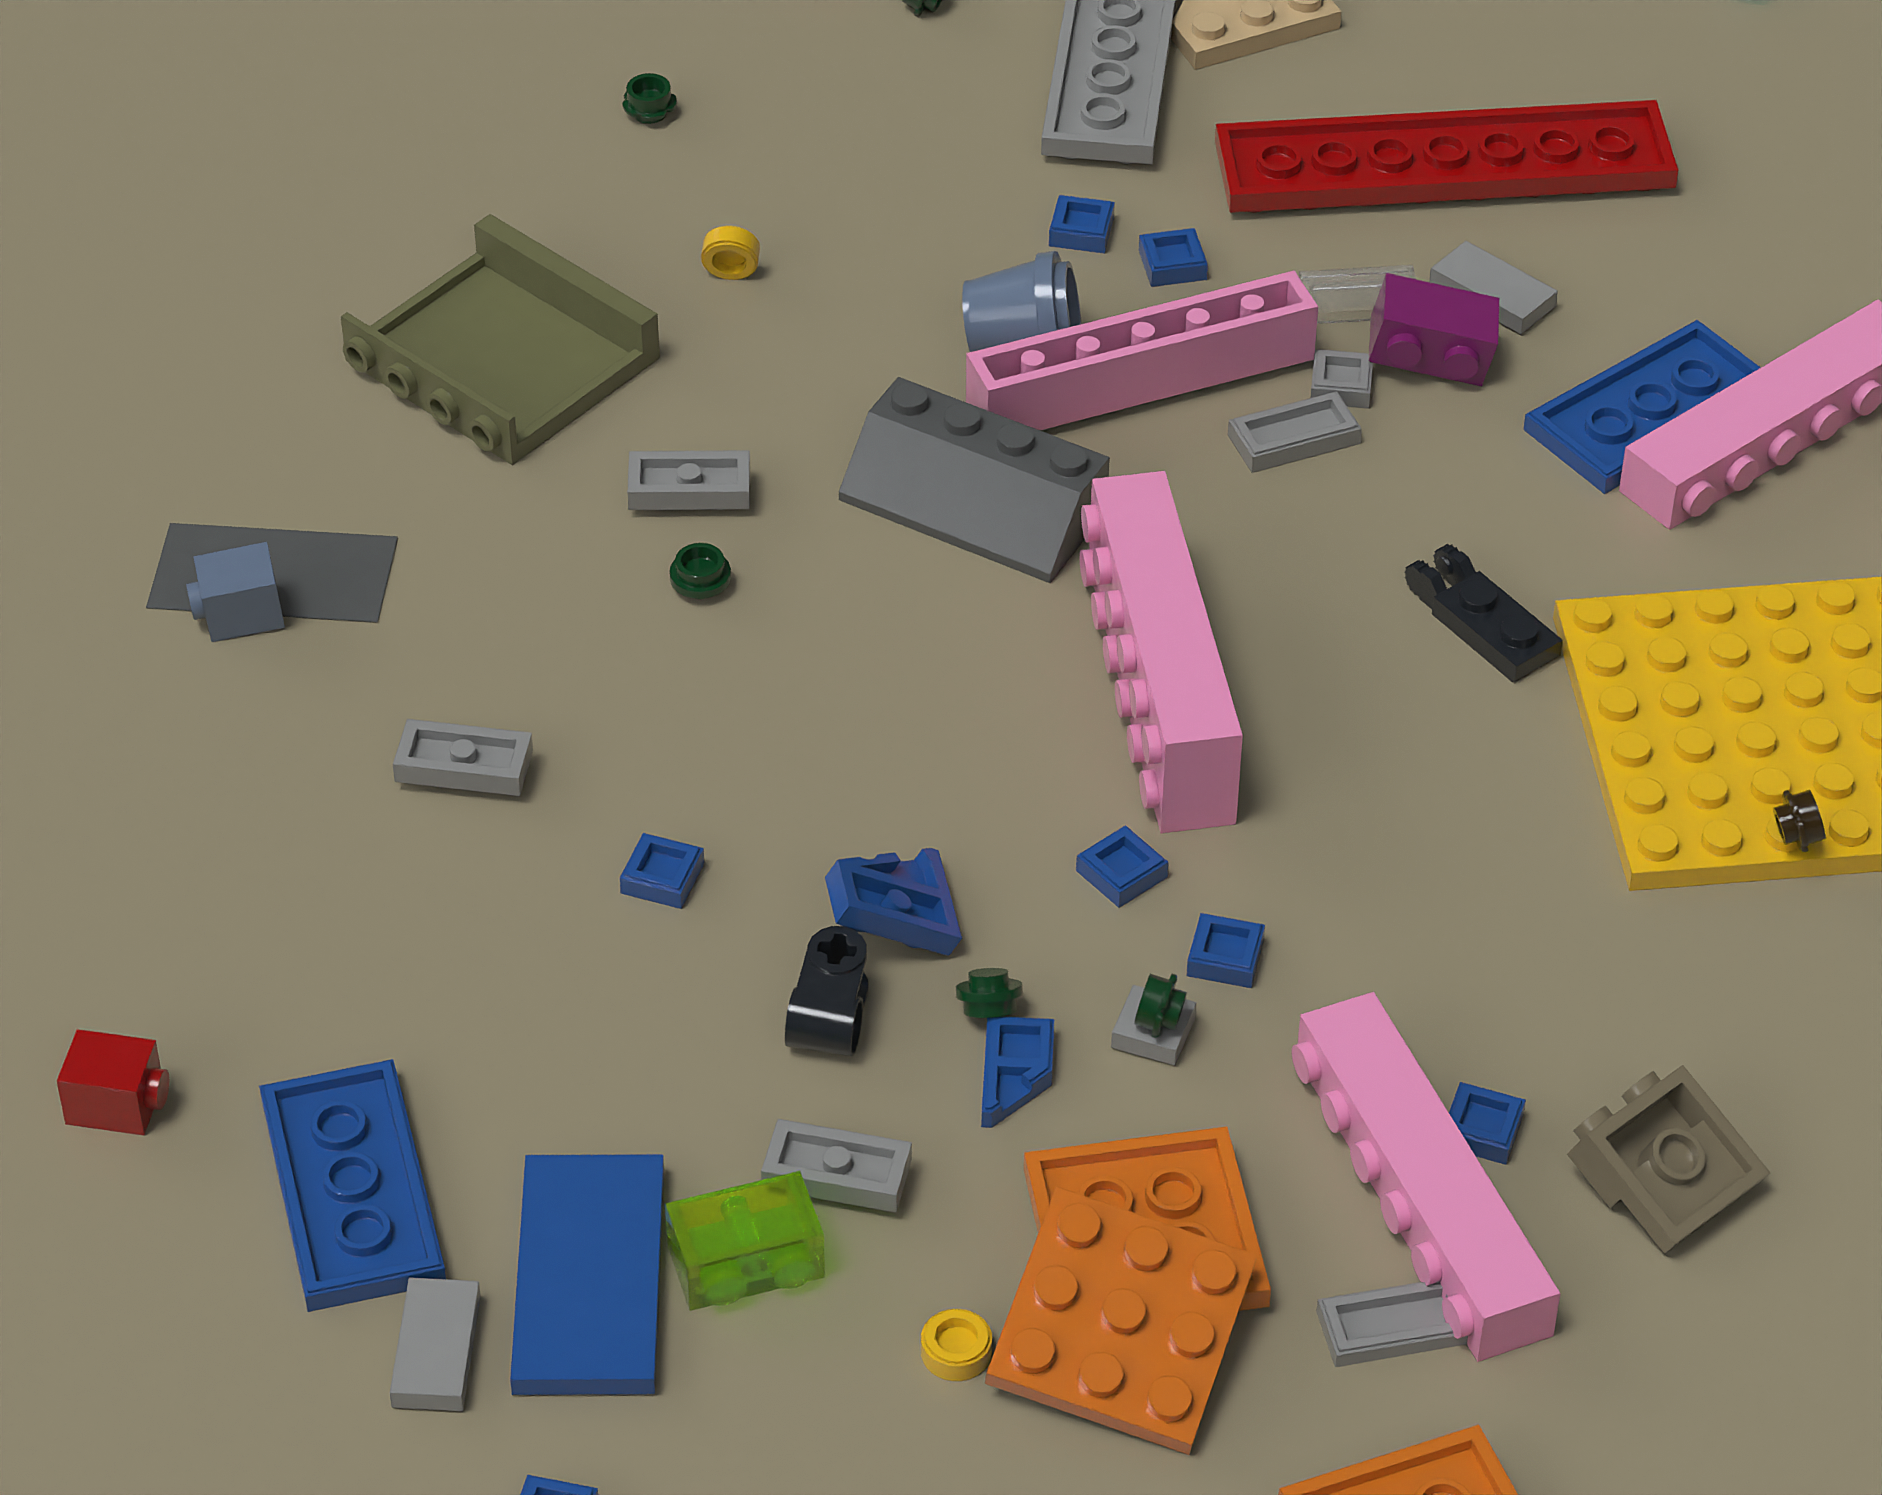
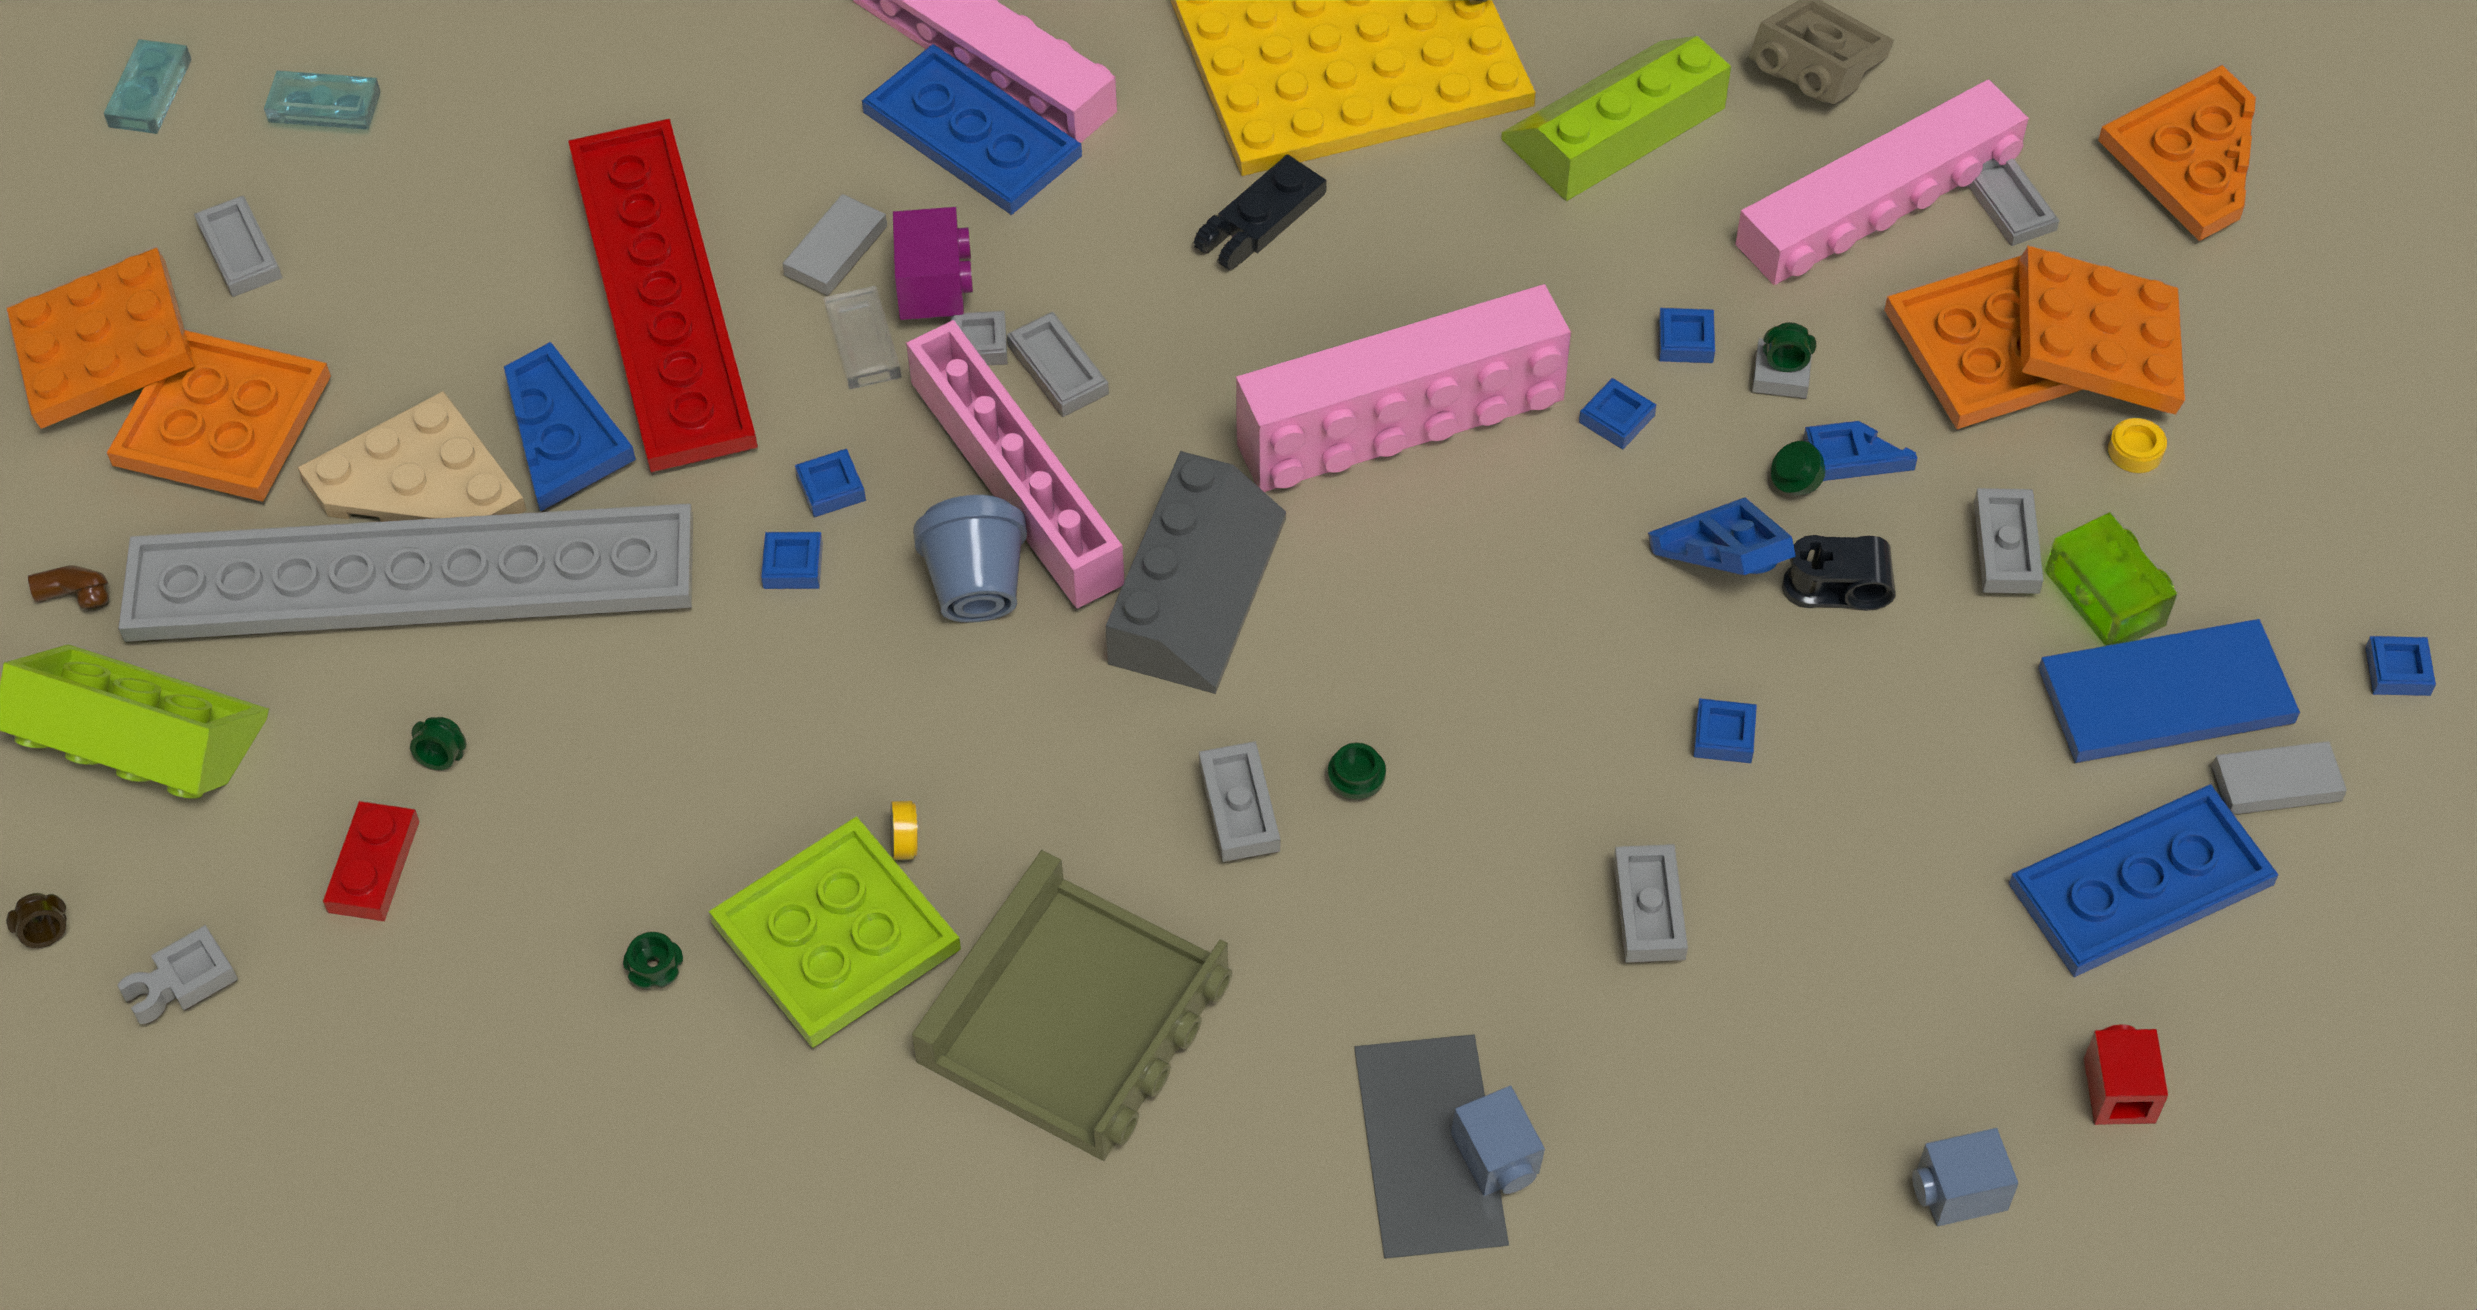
camera: 100 degrees left, 10 degrees up
(54, 926) = (1965, 1177): none -> sand blue brick
(635, 203) = (834, 931): none -> lime plate
(1283, 85) = (562, 427): none -> blue wing
(1487, 1120) = (1803, 157): blue tile -> none
(1582, 945) = (1622, 114): none -> lime slope

